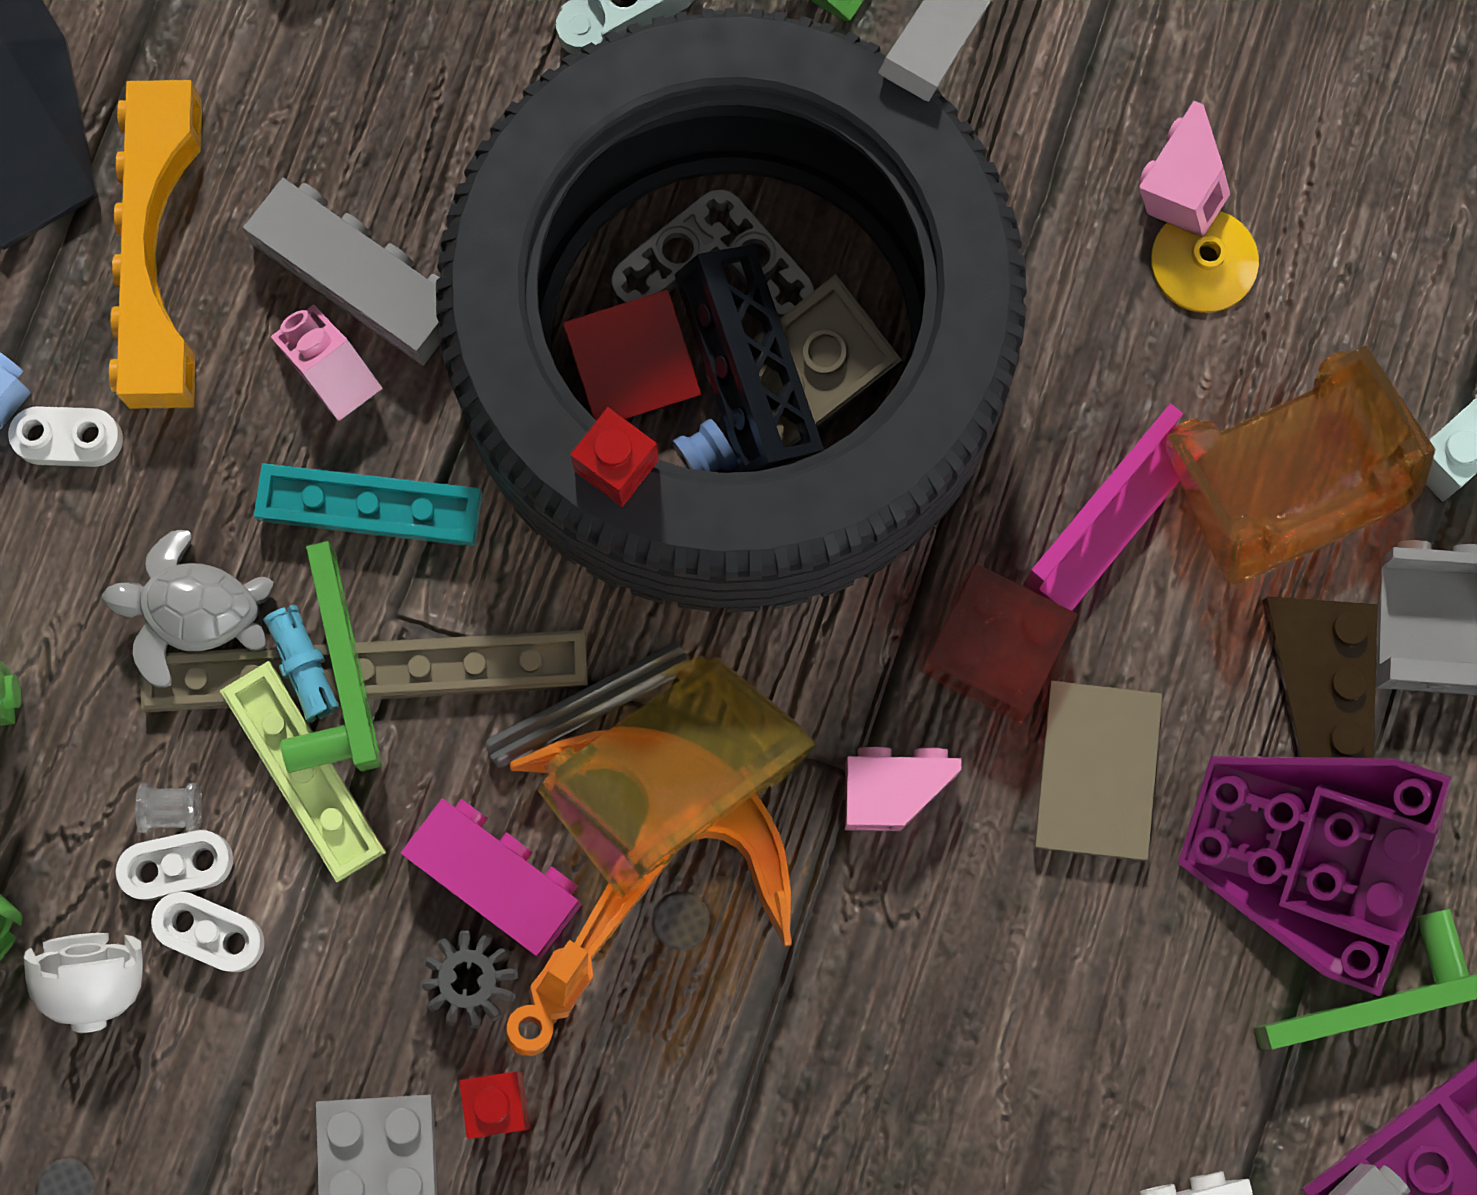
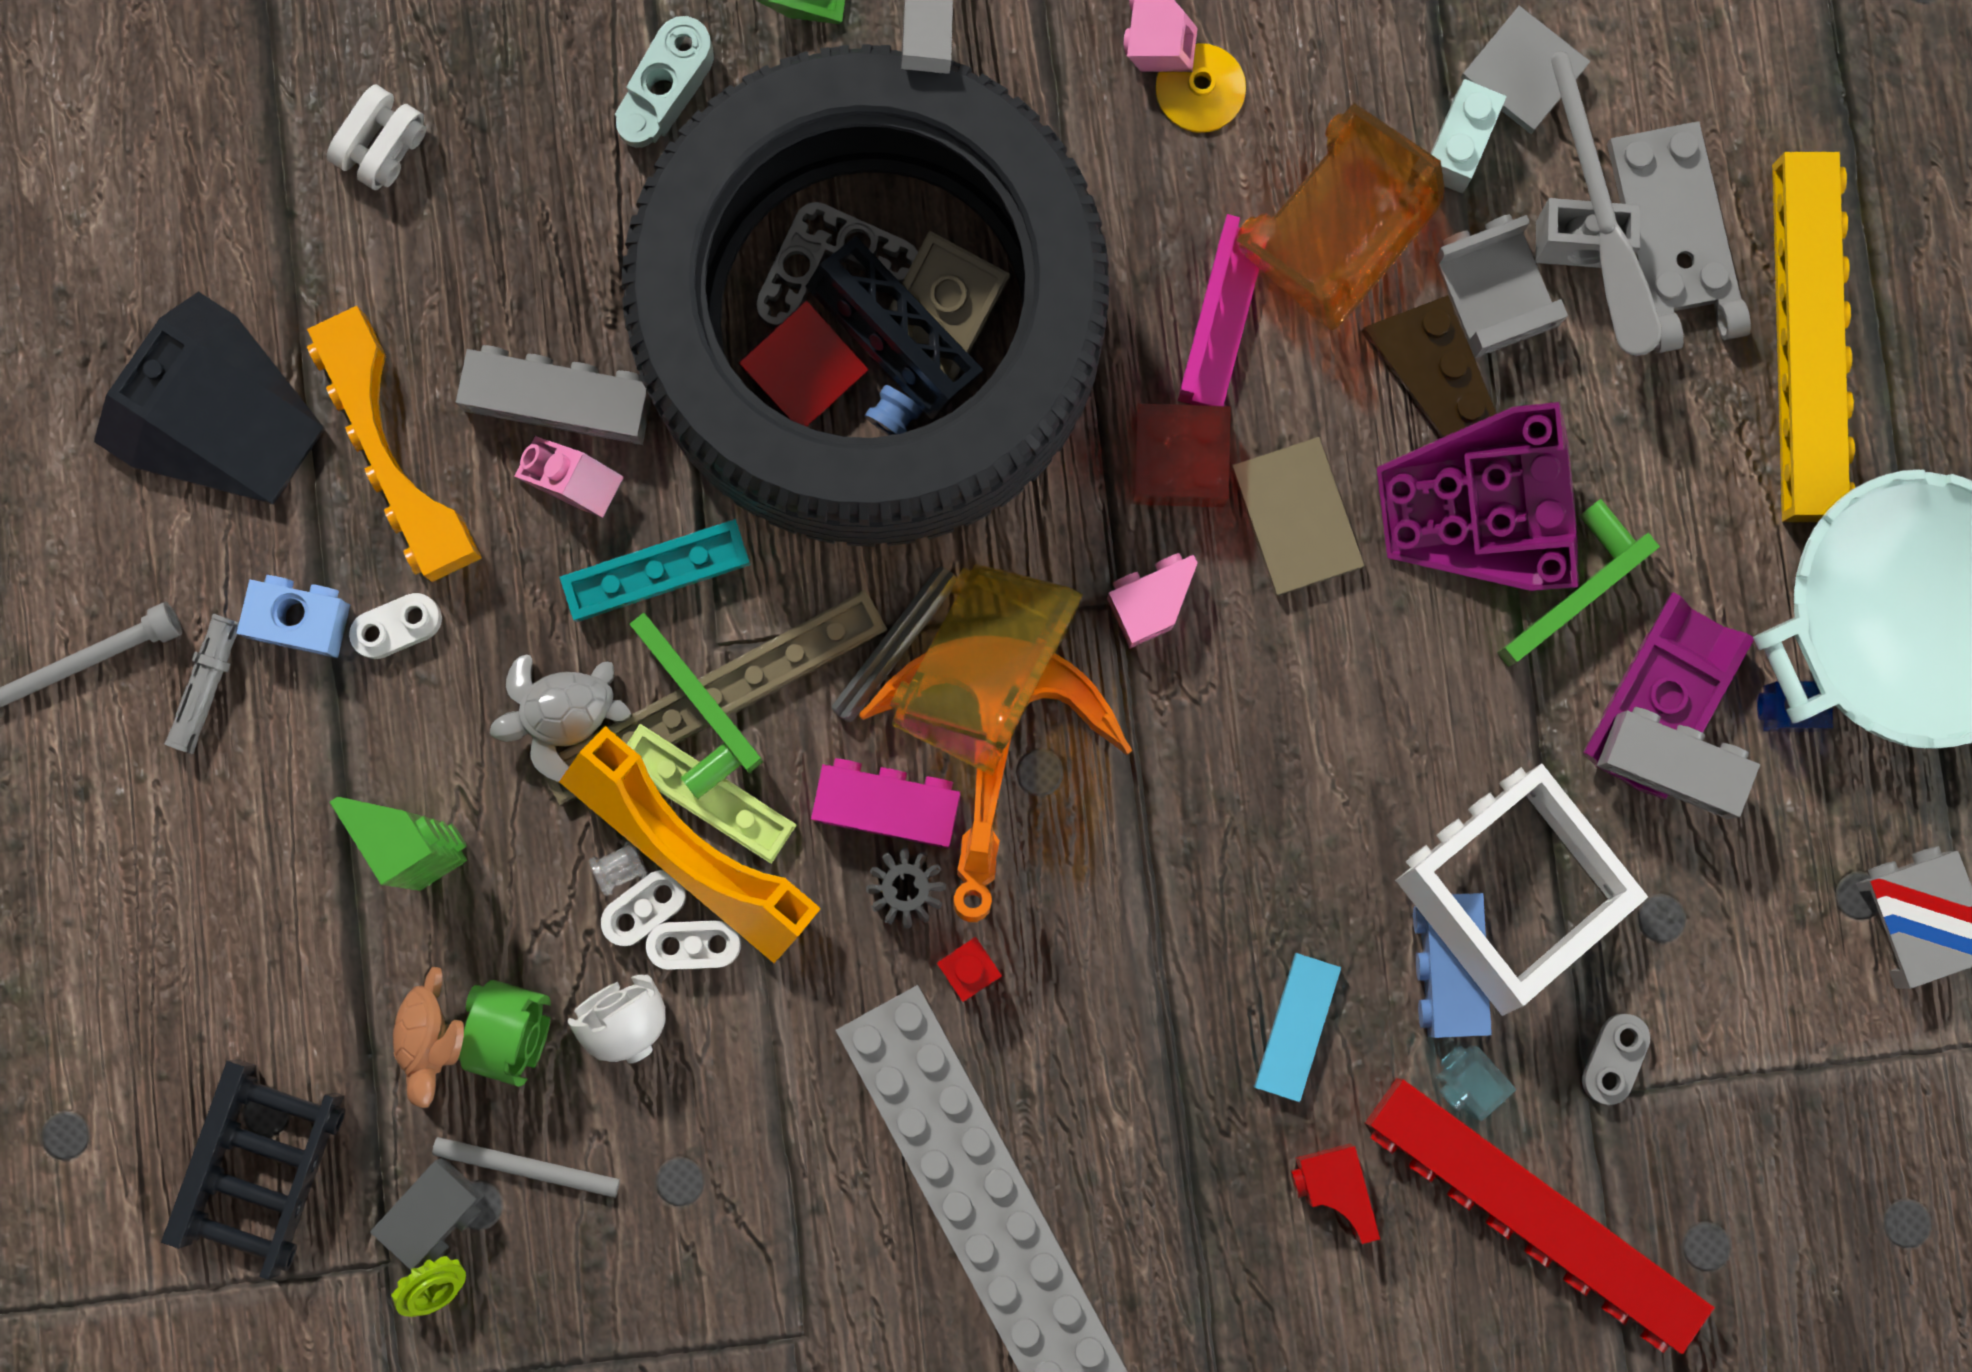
camera: 25 degrees left, 5 degrees up
(209, 726) = (619, 789): none -> light orange arch
(301, 663) = (665, 713): medium azure pin -> none
(614, 456) = (845, 451): red brick -> none

